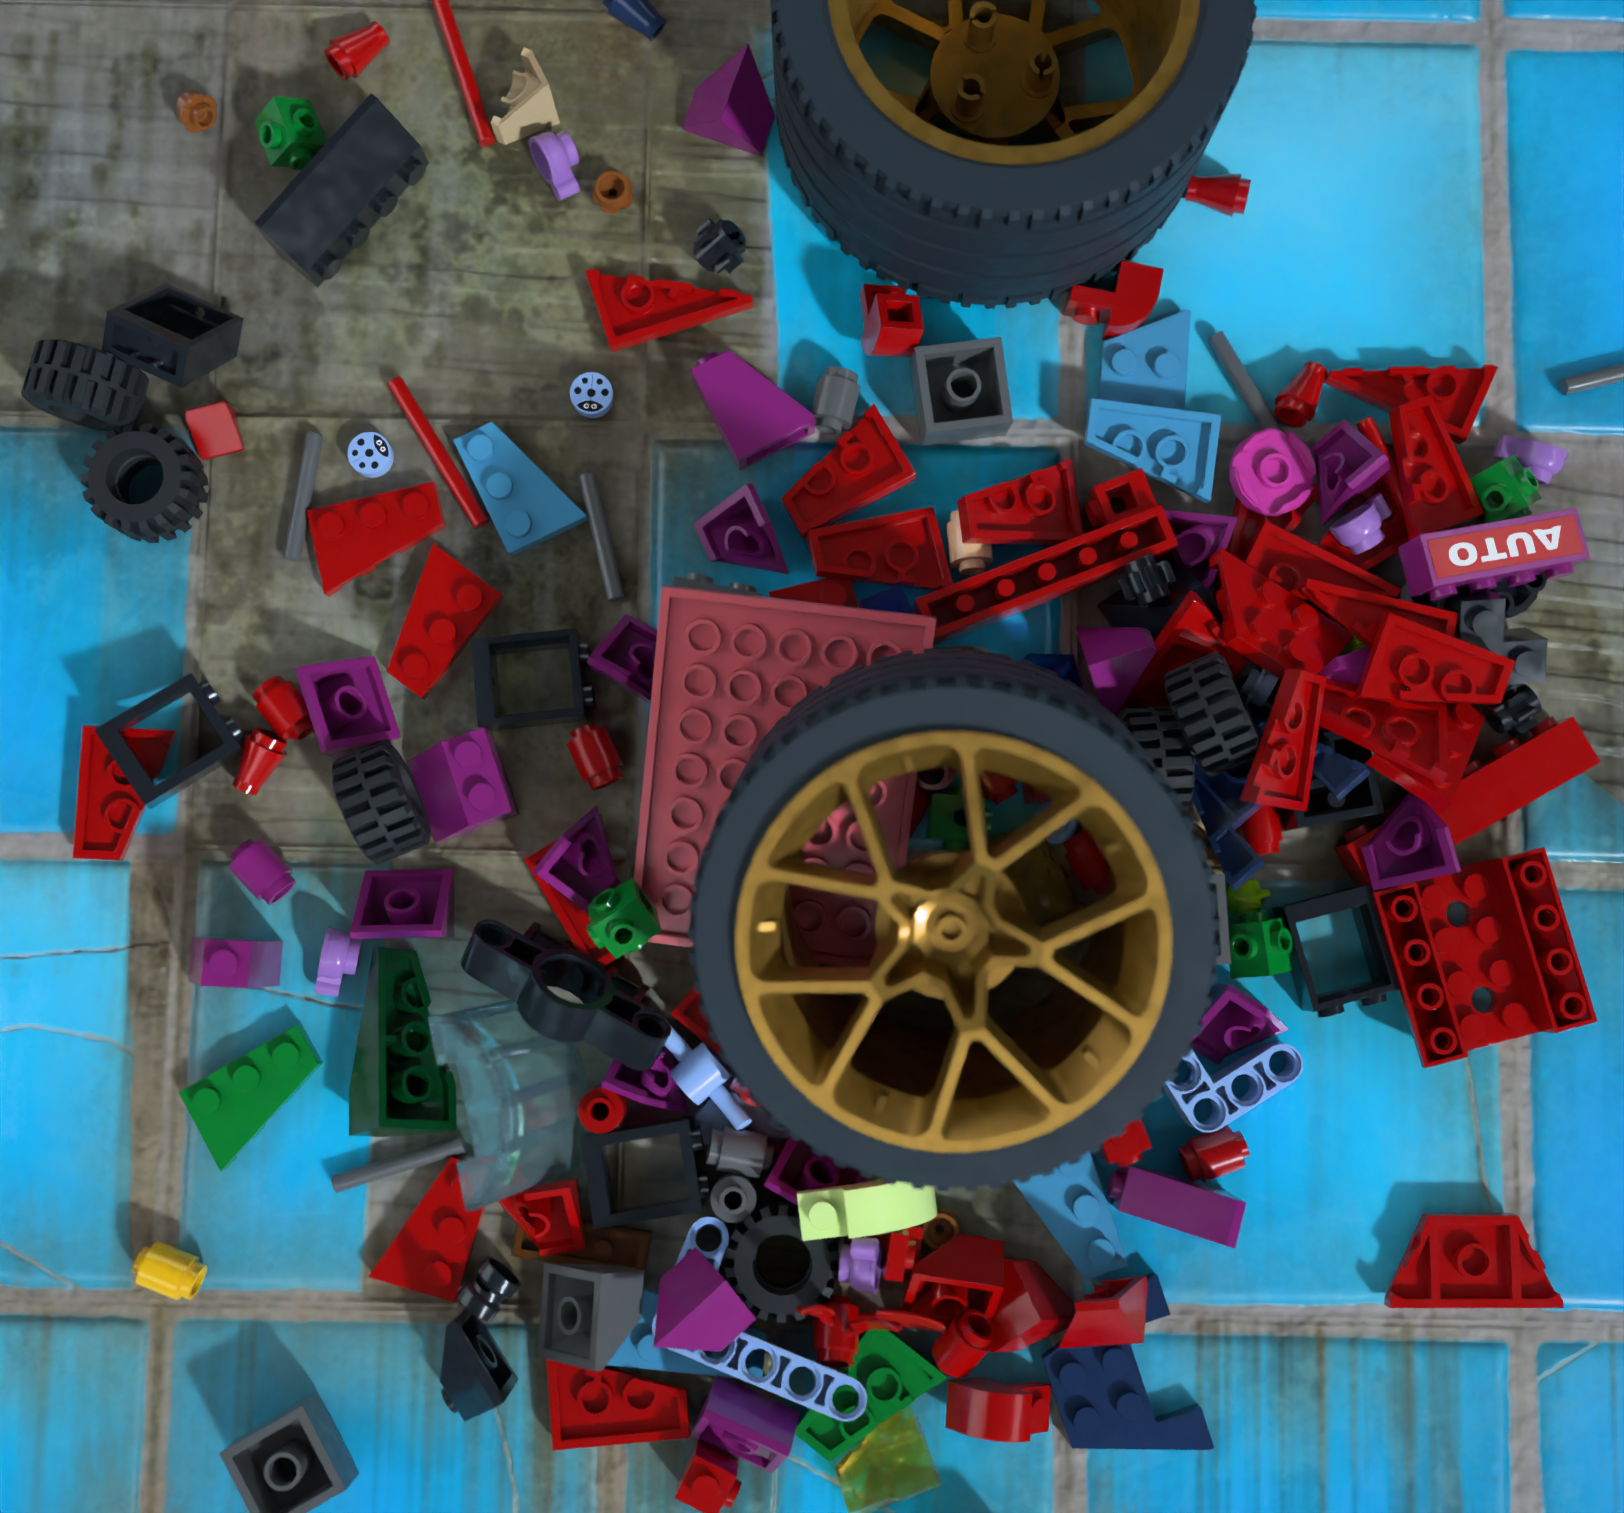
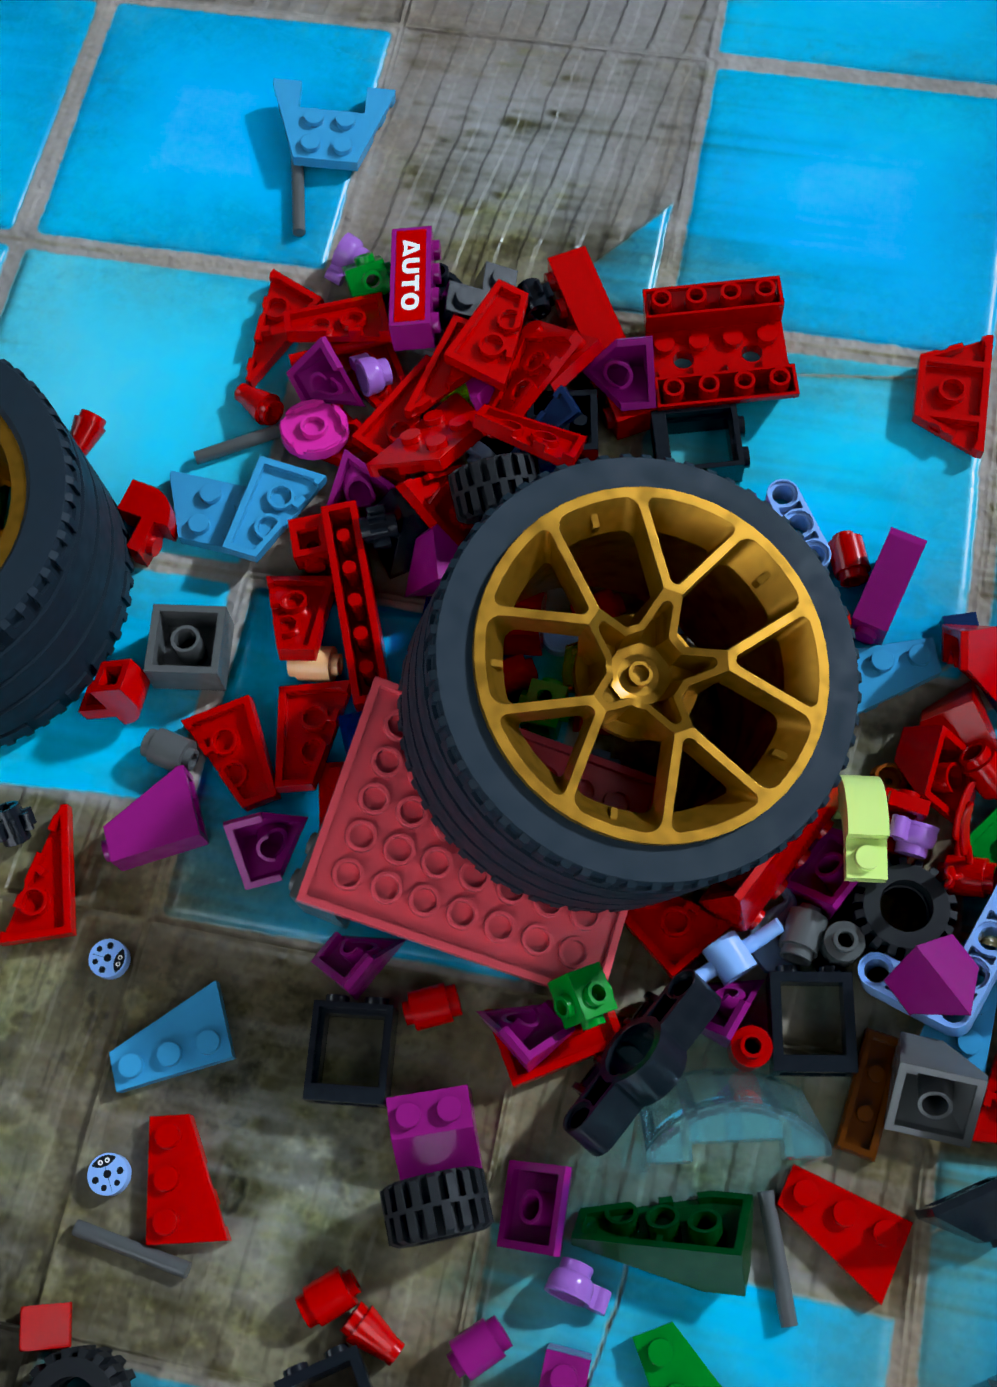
camera: 65 degrees left, 15 degrees down
(347, 705) = (338, 1231): magenta slope -> none
(437, 452) = (123, 1110): red bar -> none
(440, 622) = (280, 1133): red wing -> none
(488, 1289) = (911, 1193): black wheel -> none
(549, 1215) = (844, 1113): red slope -> none
(601, 537) = (237, 971): dark grey bar -> none

